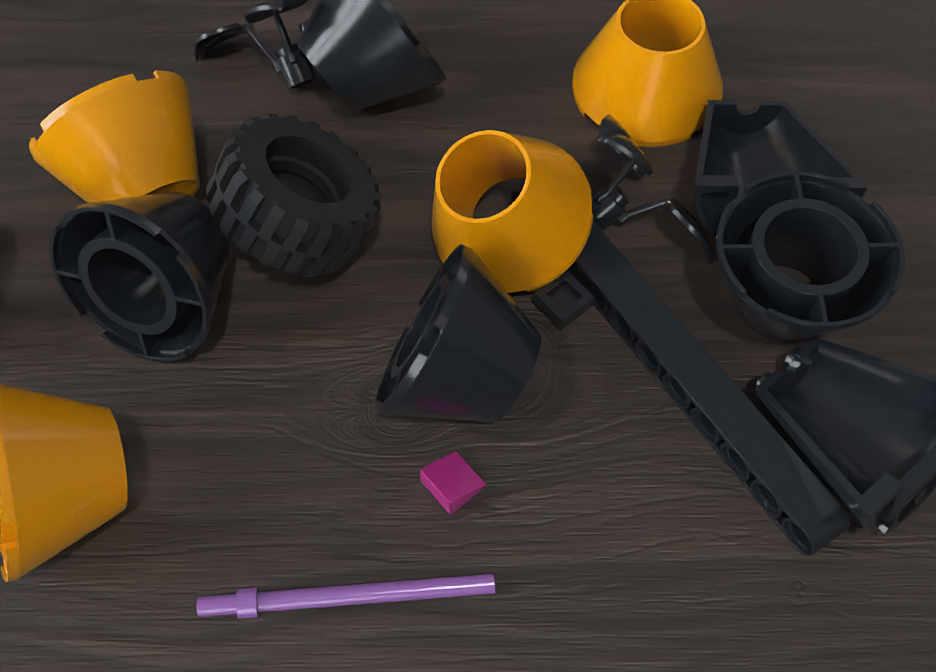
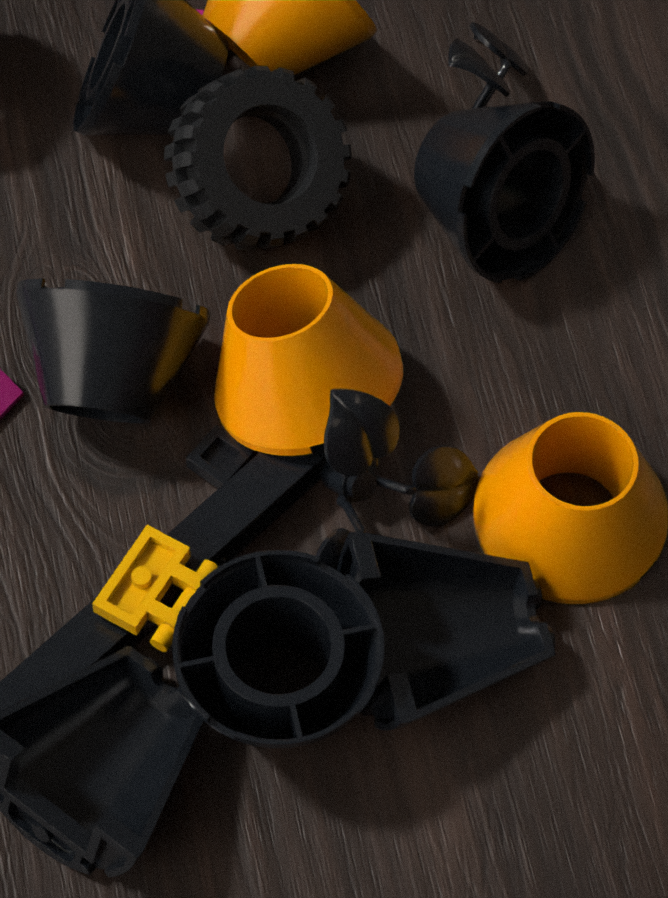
camera: 75 degrees right, 0 degrees up
(702, 360) = (142, 581): none -> yellow plate

